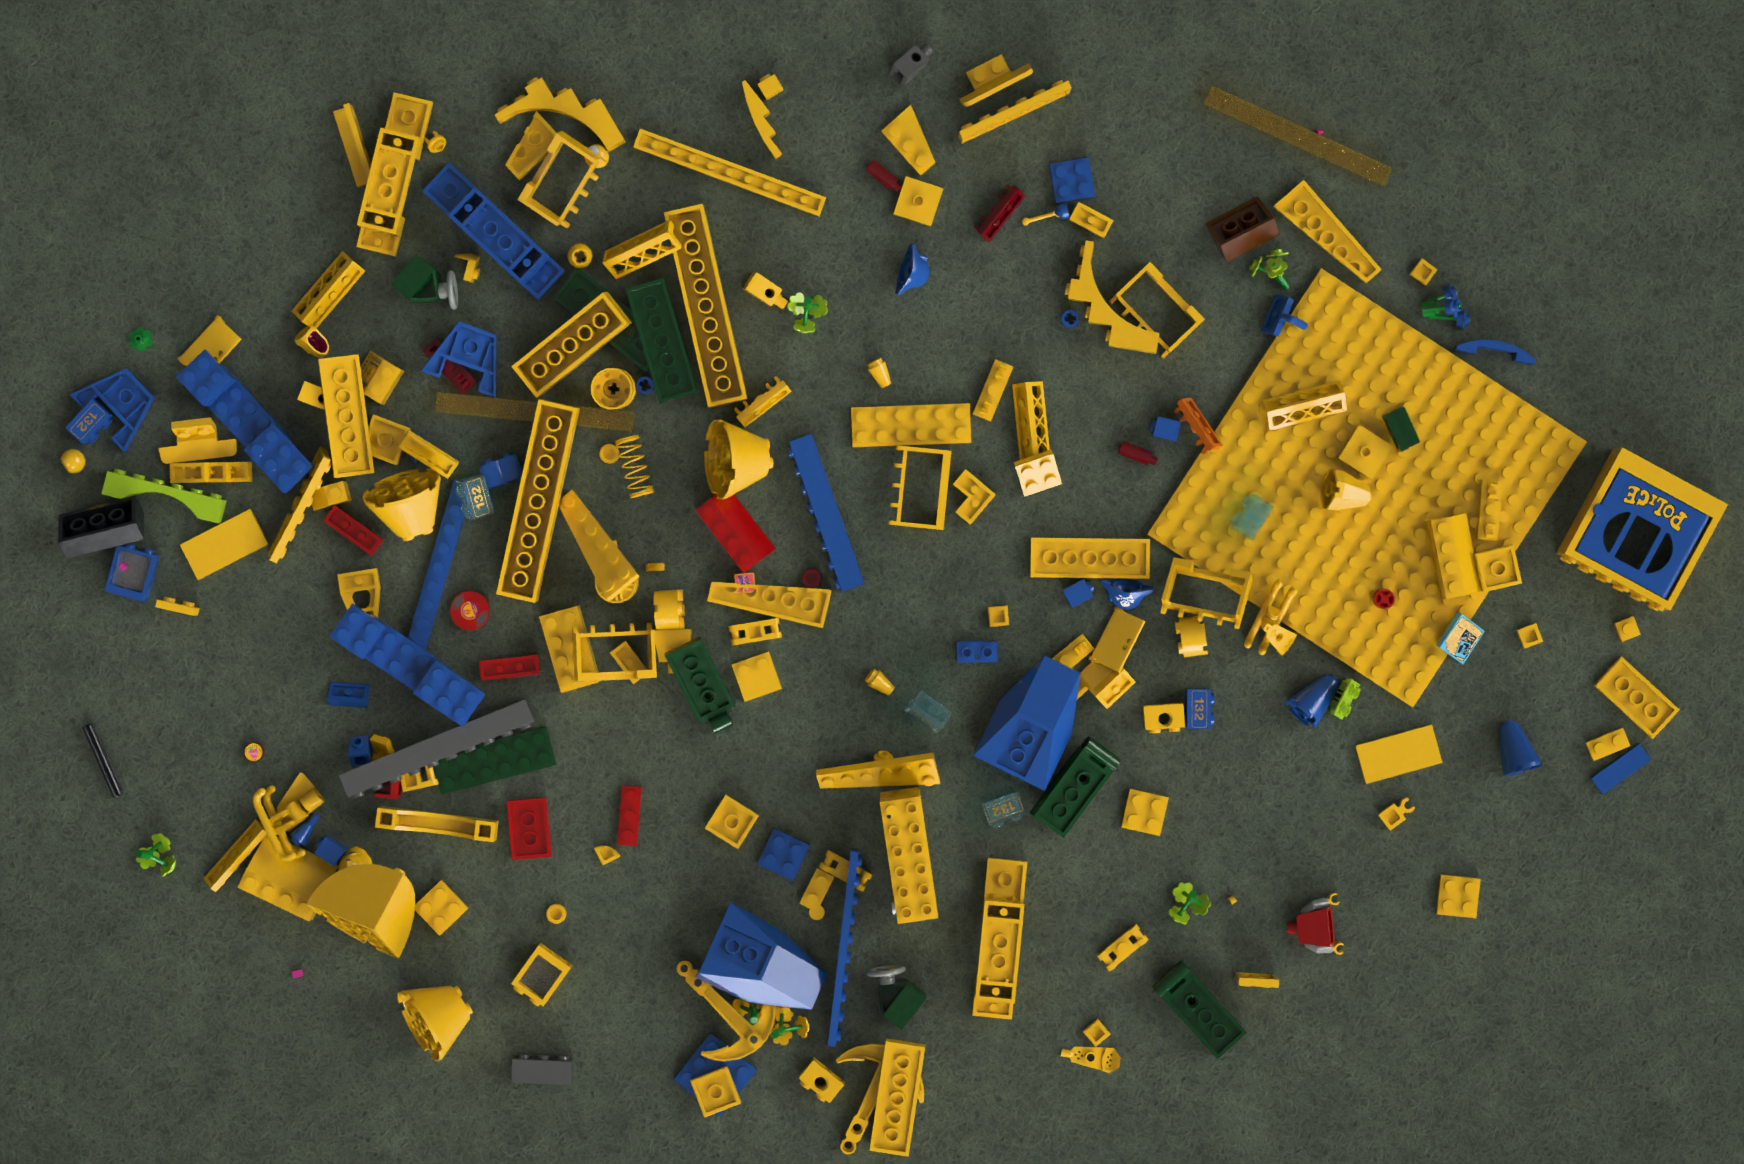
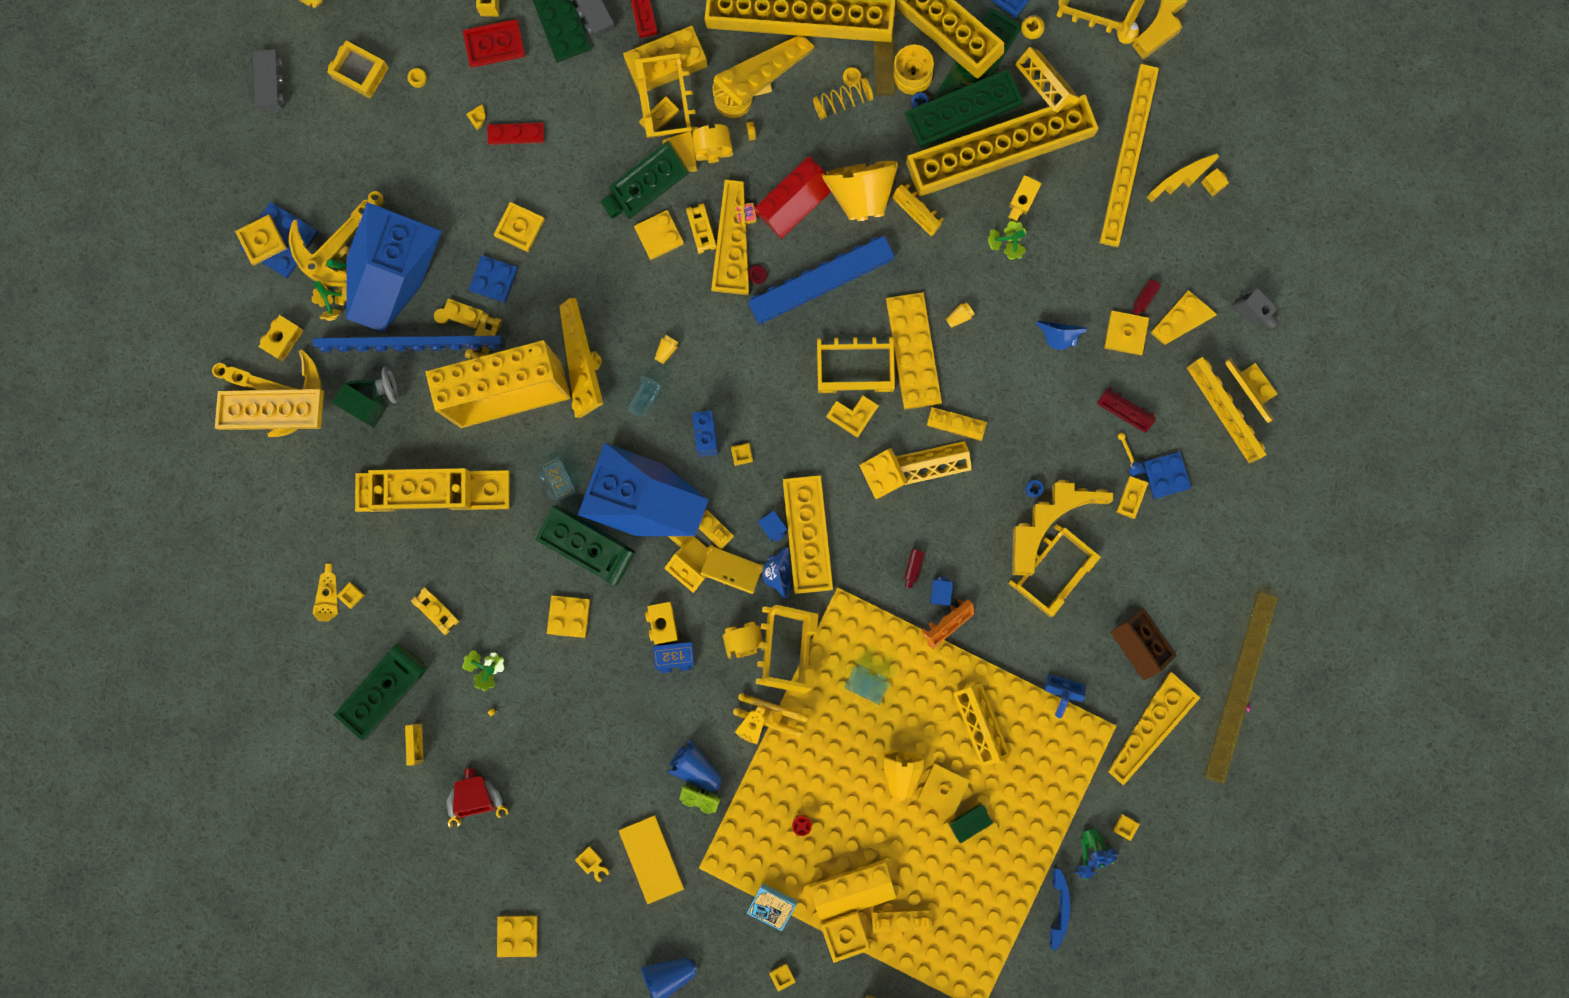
camera: 85 degrees right, 5 degrees down
(1274, 268) = (1111, 678): lime plant -> none

